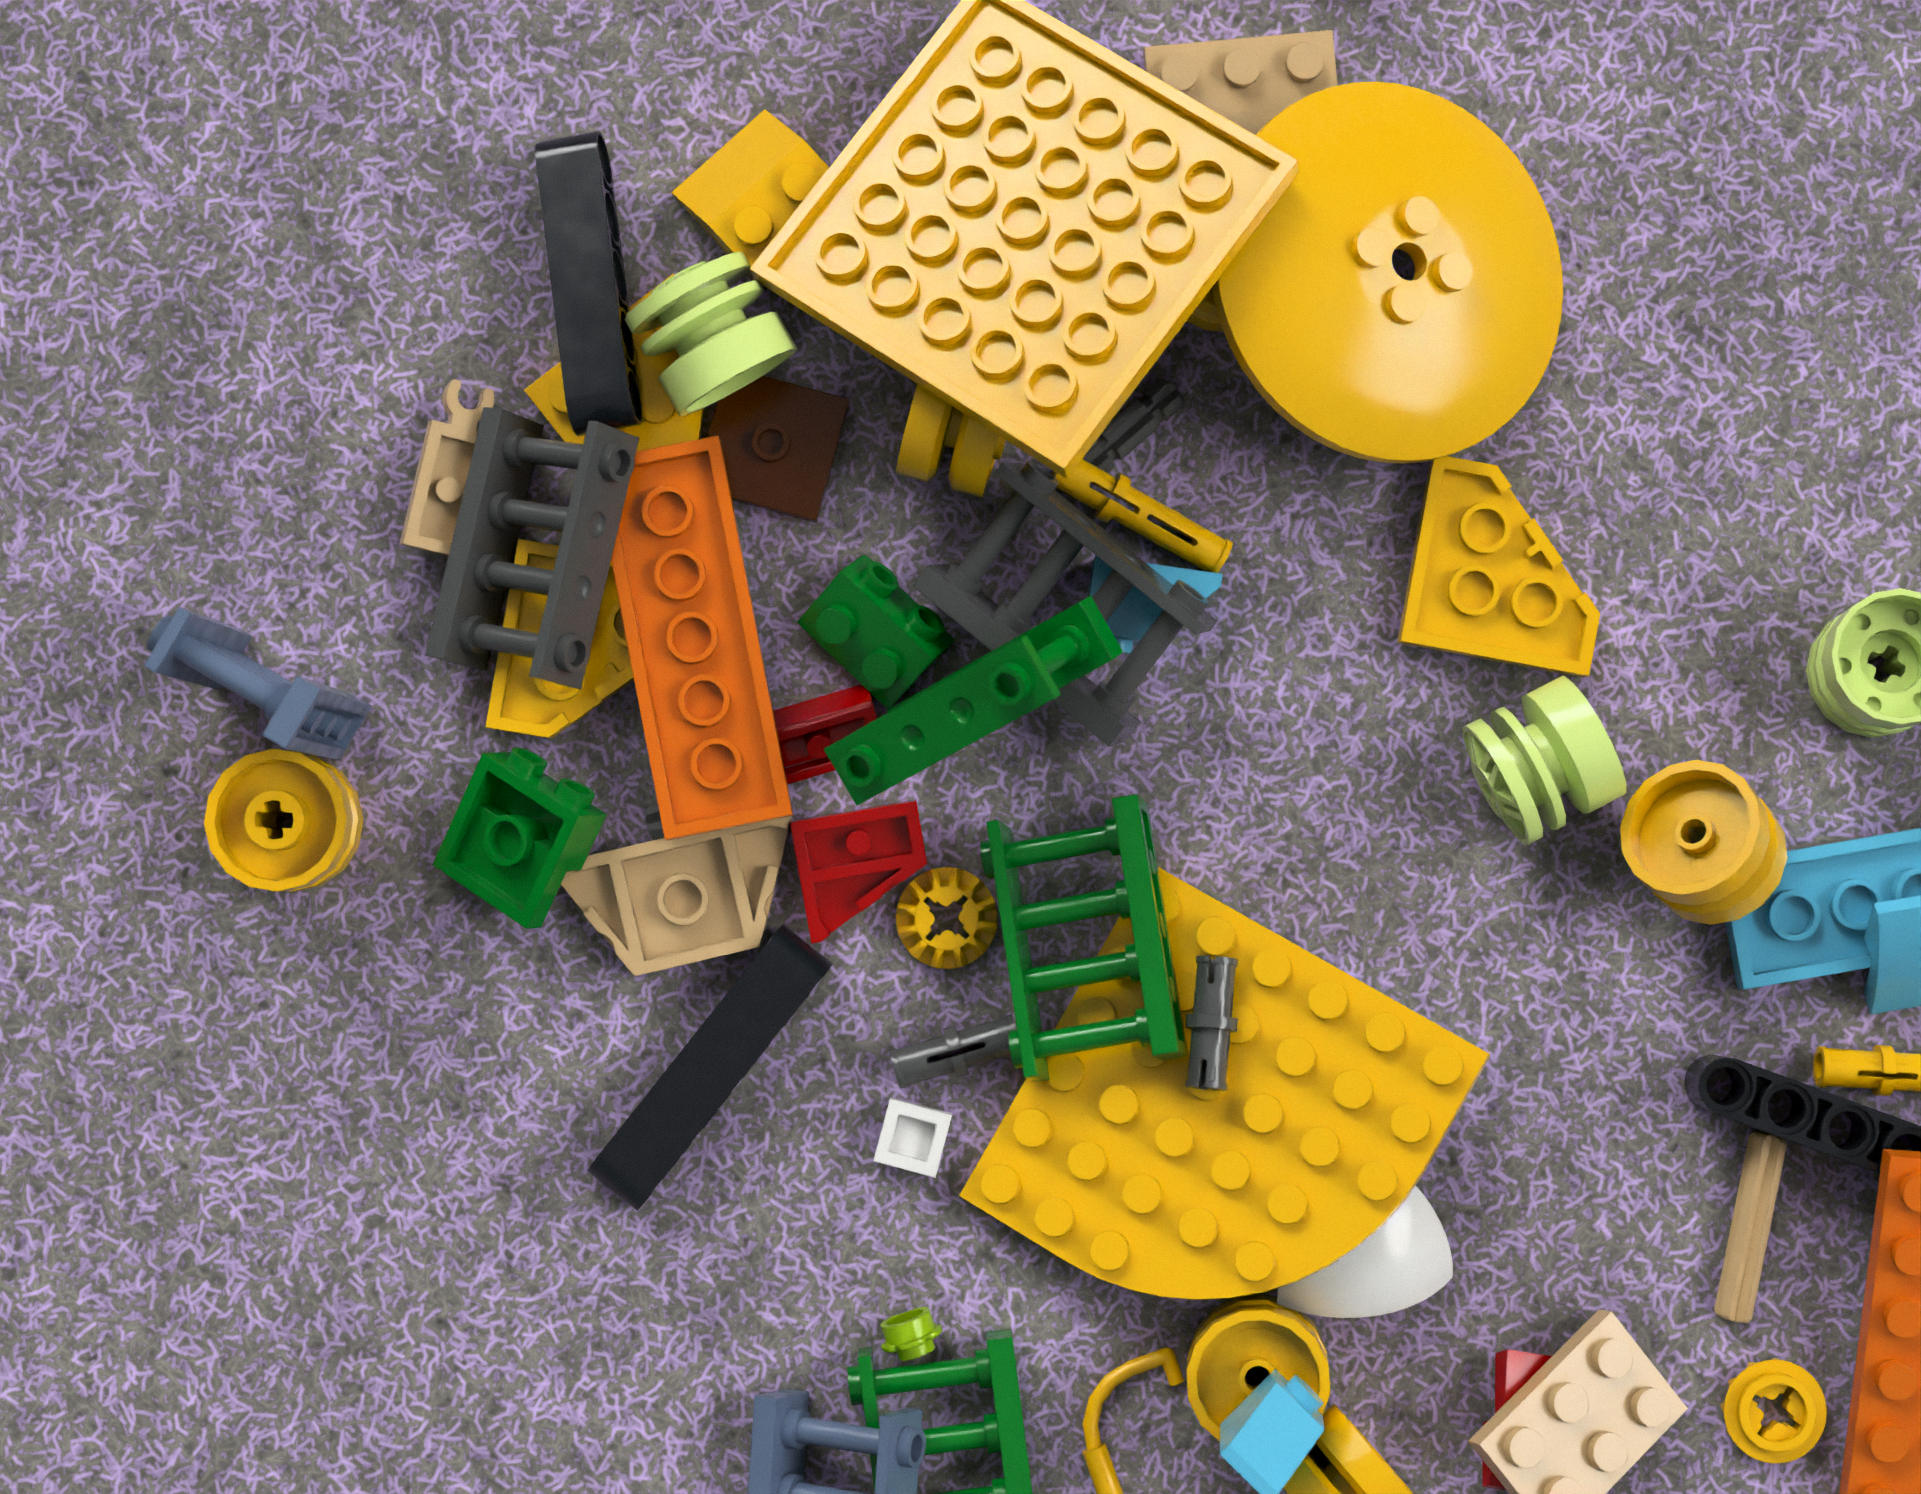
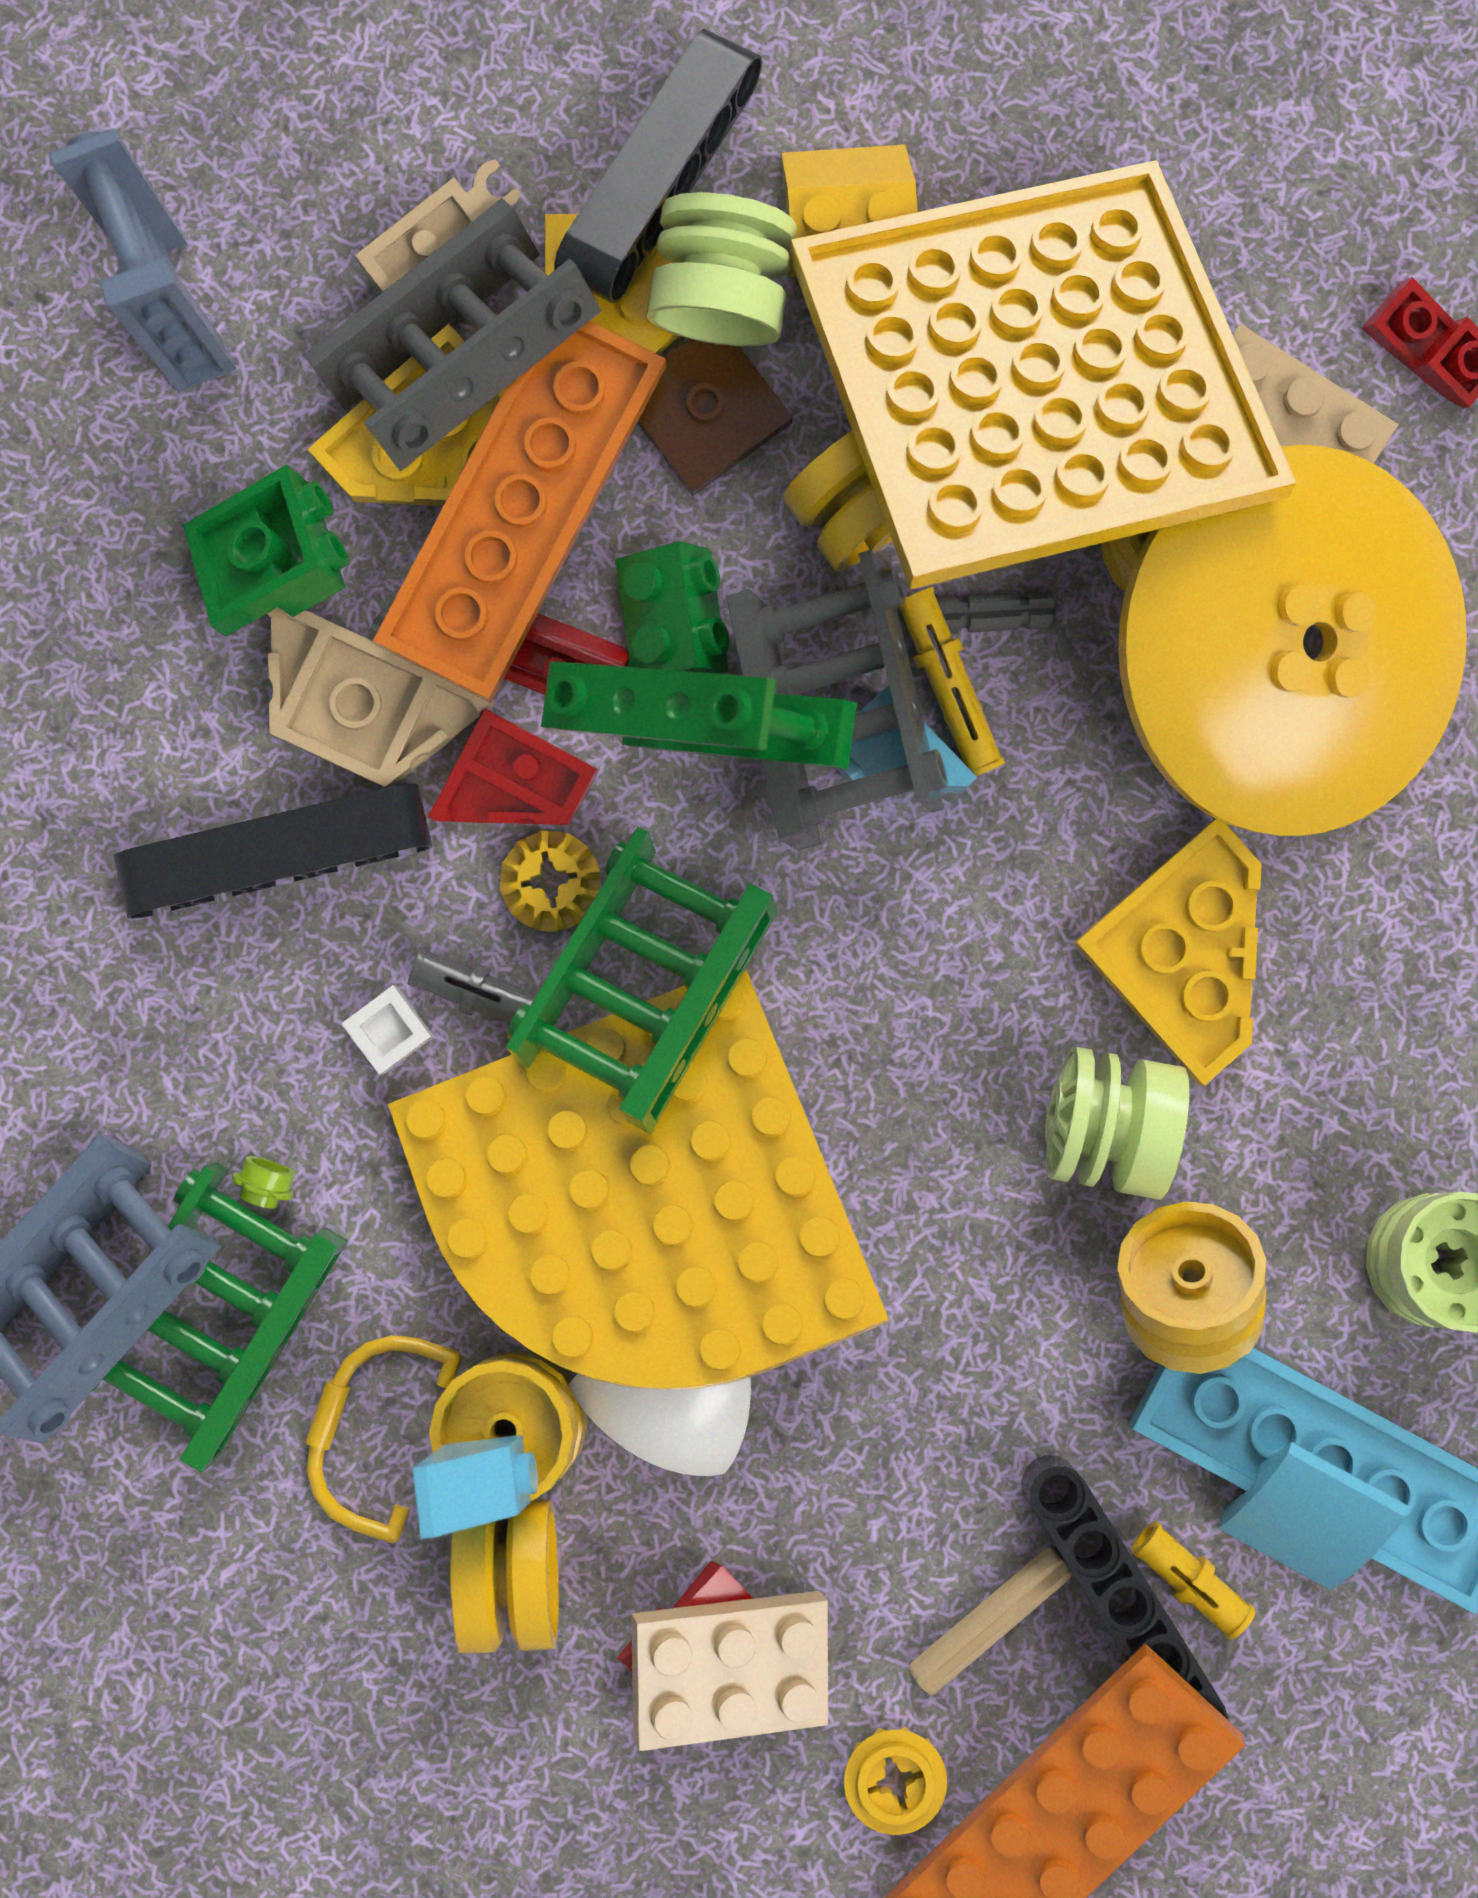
camera: 30 degrees right, 0 degrees up
(246, 815) = (91, 397): yellow wheel -> none
(1211, 1023) = (688, 1121): dark grey pin -> none

